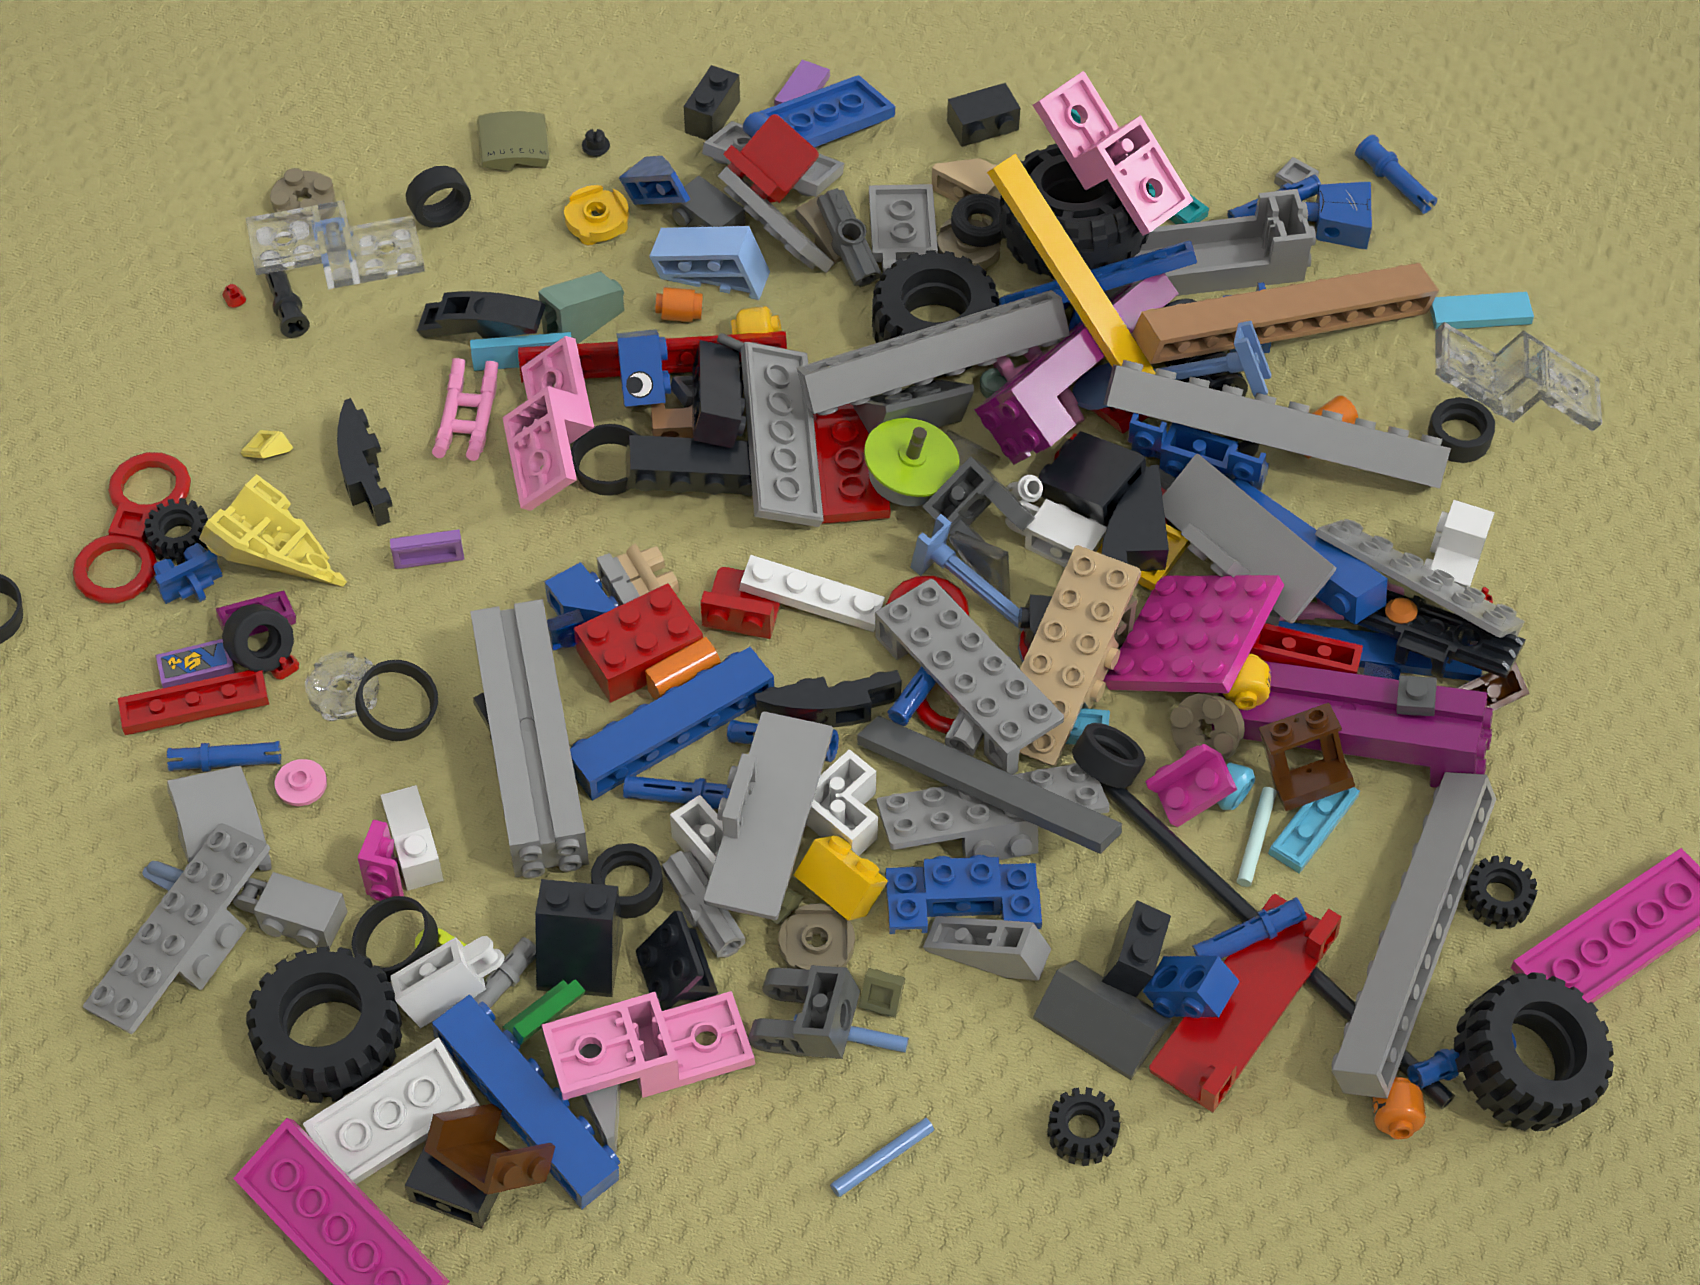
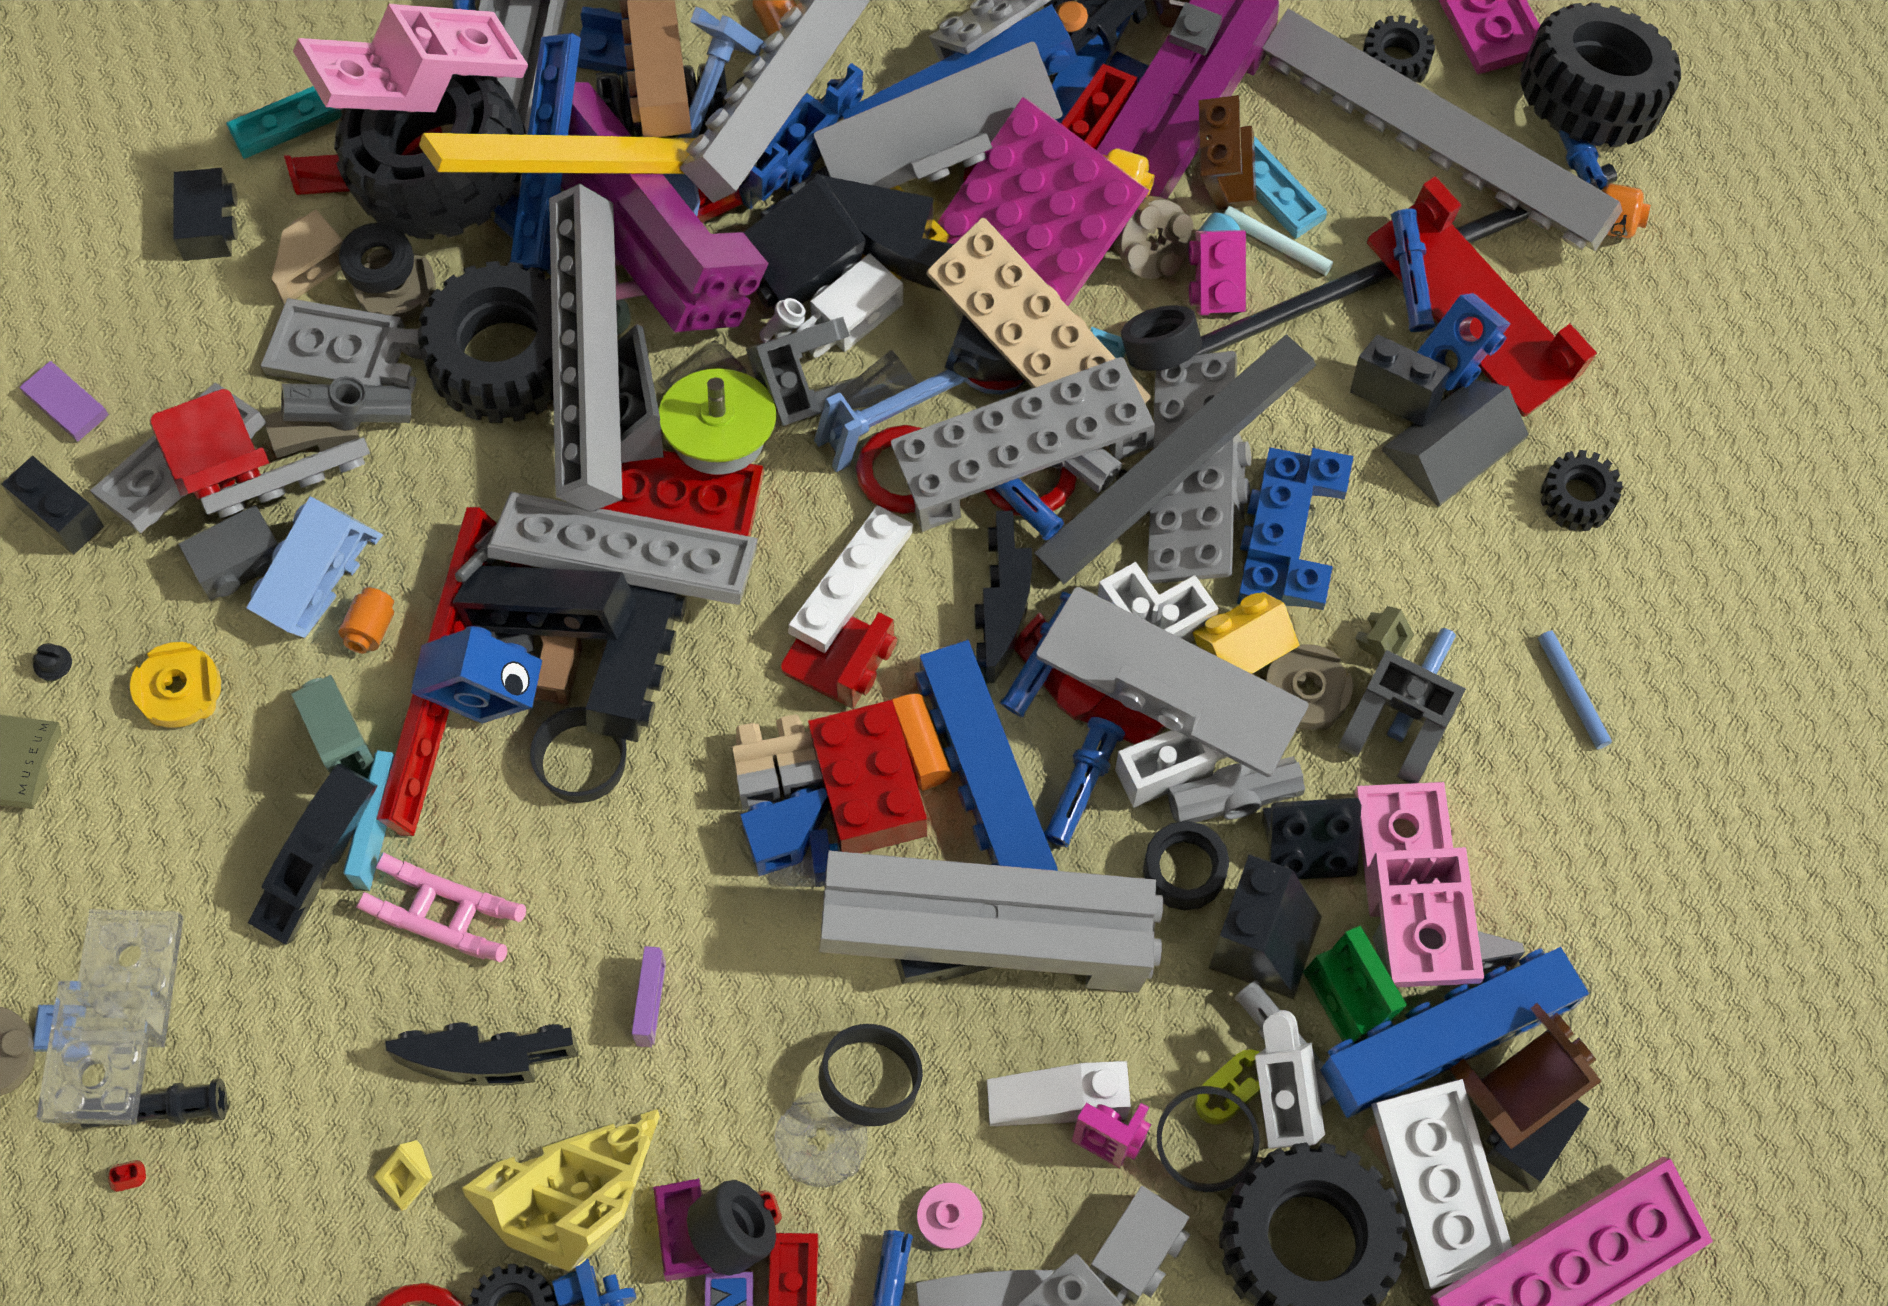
camera: 75 degrees left, 10 degrees up
(427, 184) = (78, 867): black tyre -> none
(547, 423) = (523, 803): bright pink bracket -> none
(653, 182) = (167, 596): blue slope -> none
(755, 320) = (435, 541): yellow head -> none
(829, 111) = (130, 382): blue hinge -> none
(994, 946) = (1356, 518): light grey slope -> none

